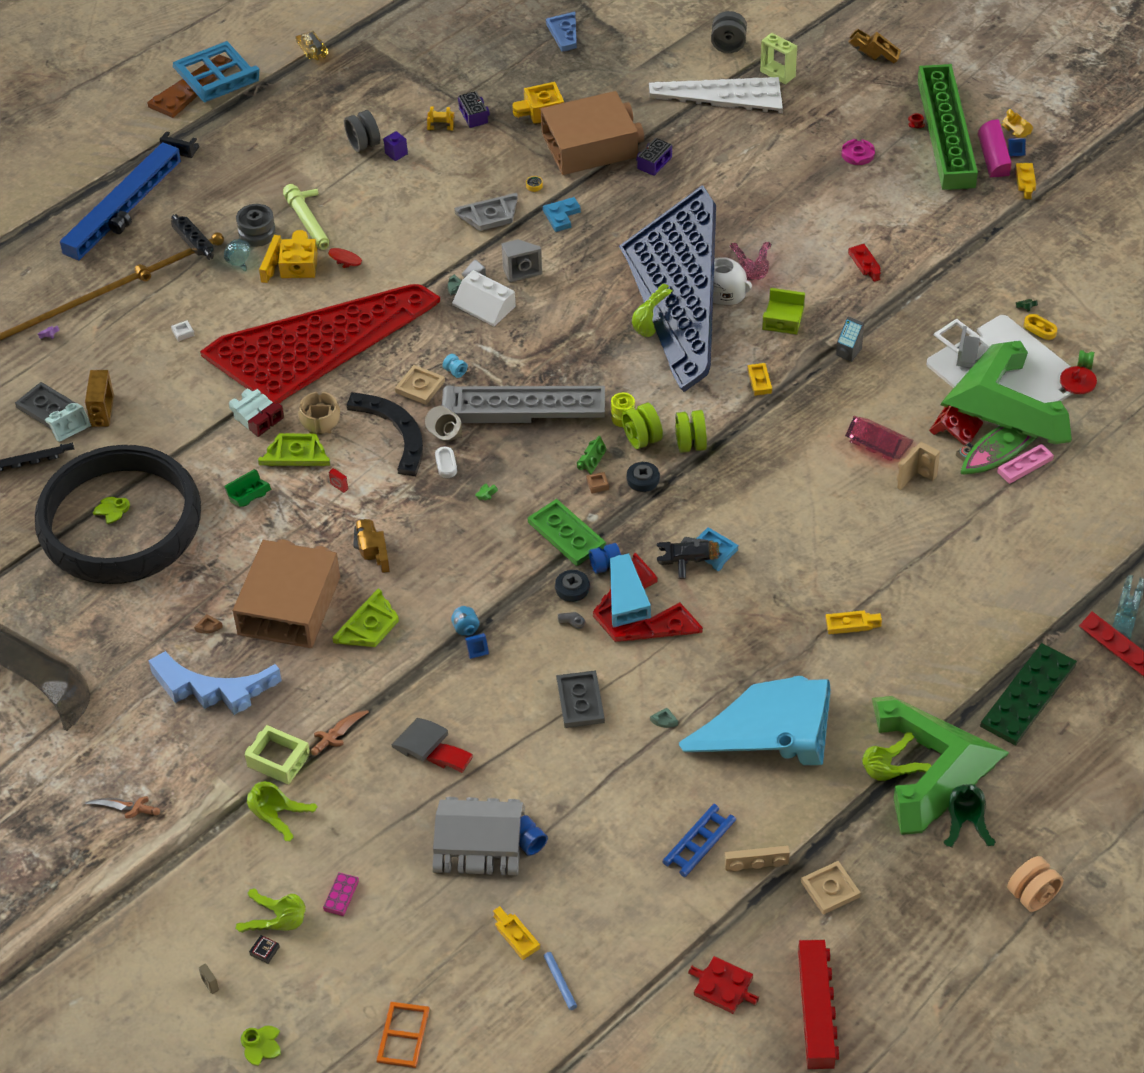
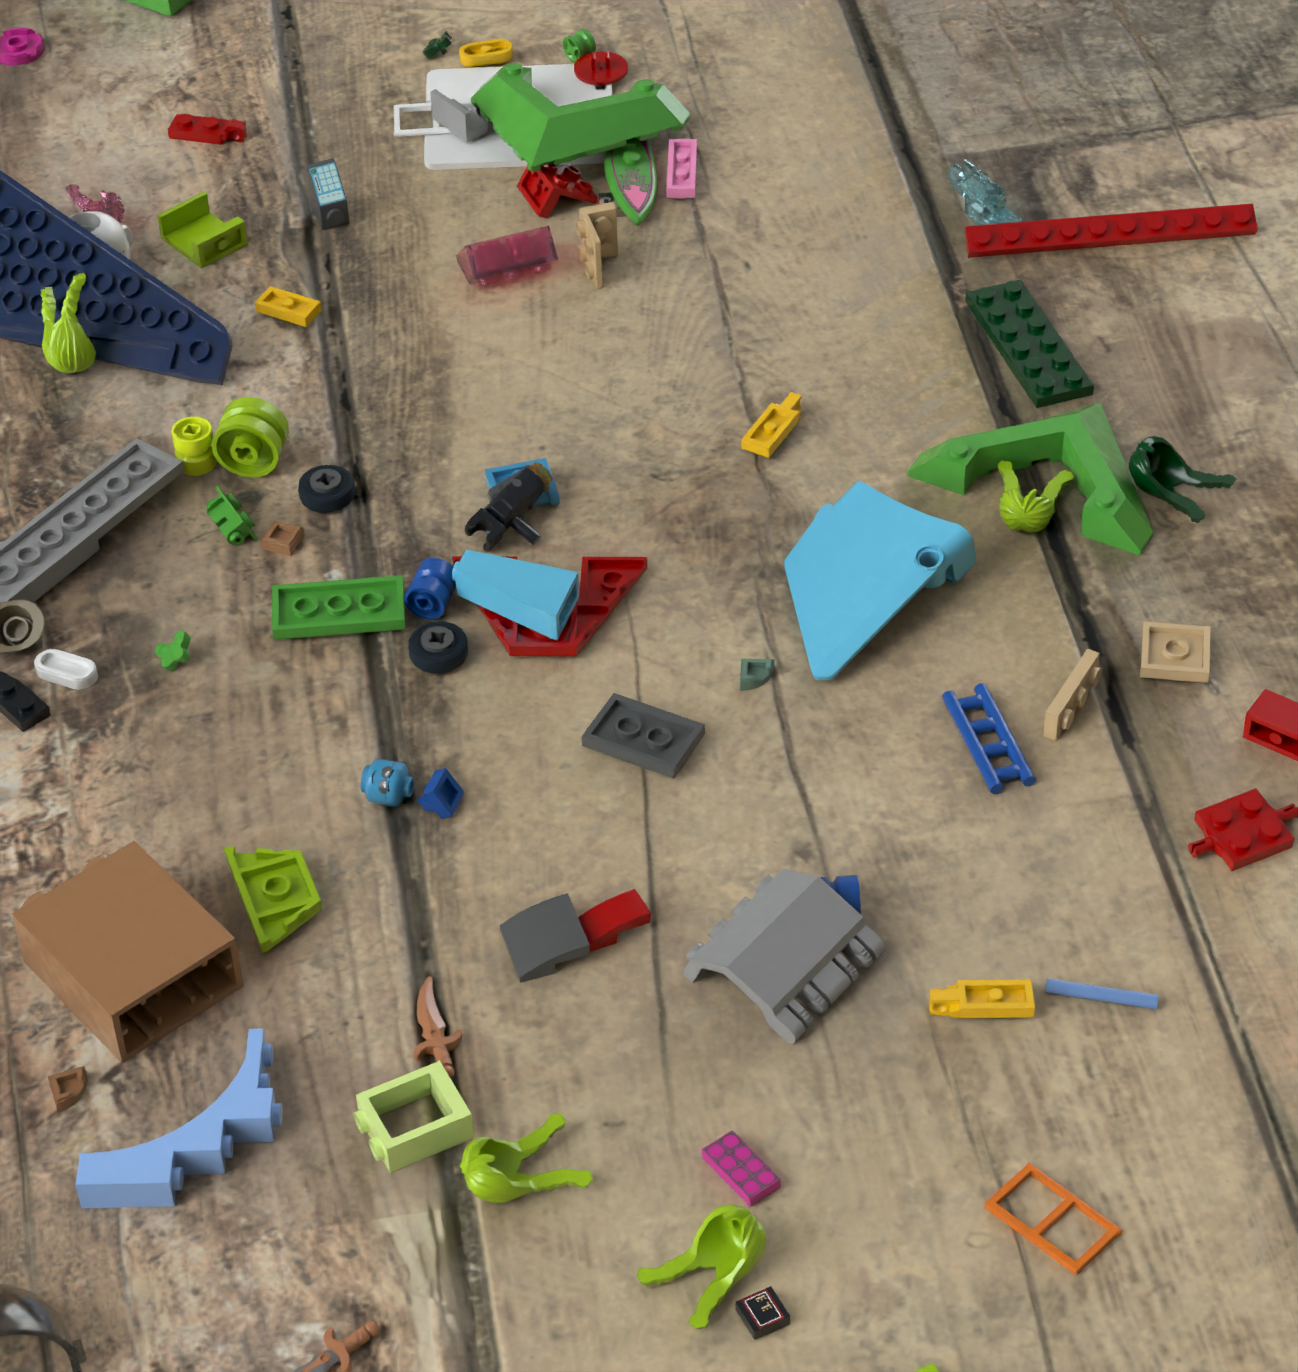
camera: 55 degrees left, 5 degrees down
(371, 543) = (134, 815): pearl gold plate -> none
(573, 618) = (494, 675): flat silver arm -> none
(690, 431) = (314, 398): lime wheel -> none

